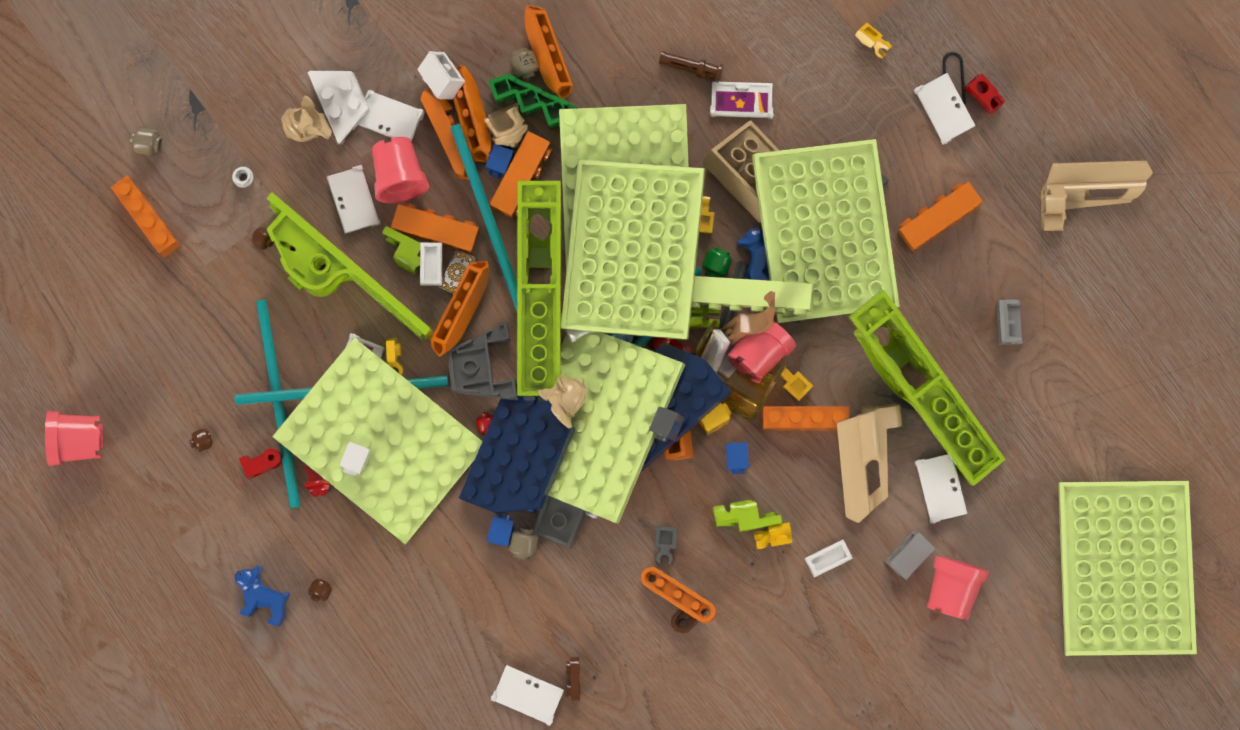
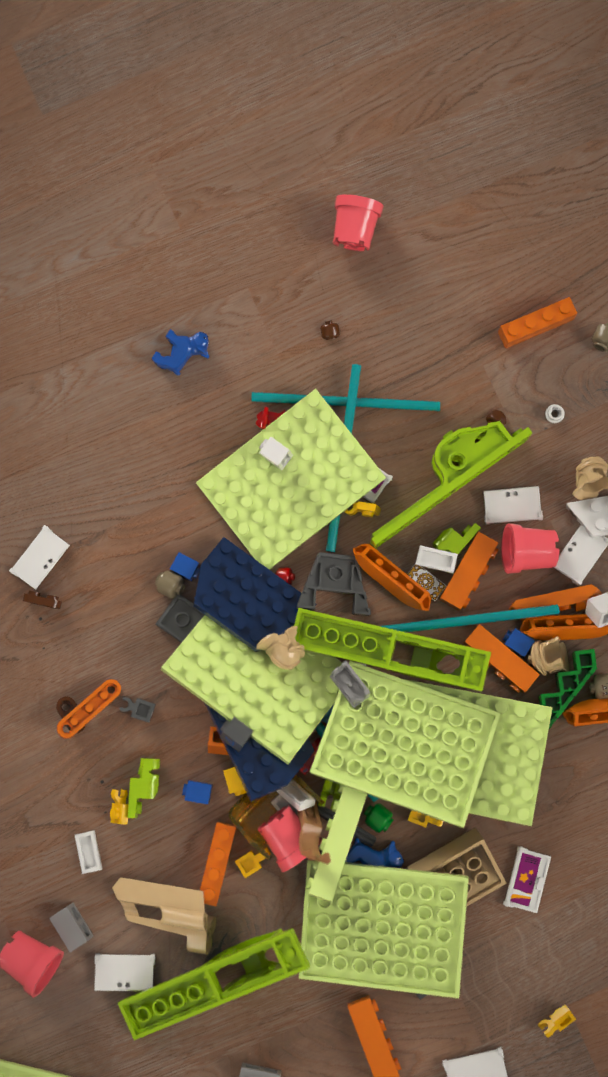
camera: 100 degrees right, 0 degrees up
(259, 465) = (297, 382): red leg -> none
(319, 590) = (175, 402): reddish brown piece -> none
(585, 319) = (350, 684): none -> light grey hinge
(701, 68) = (565, 850): reddish brown pin -> none

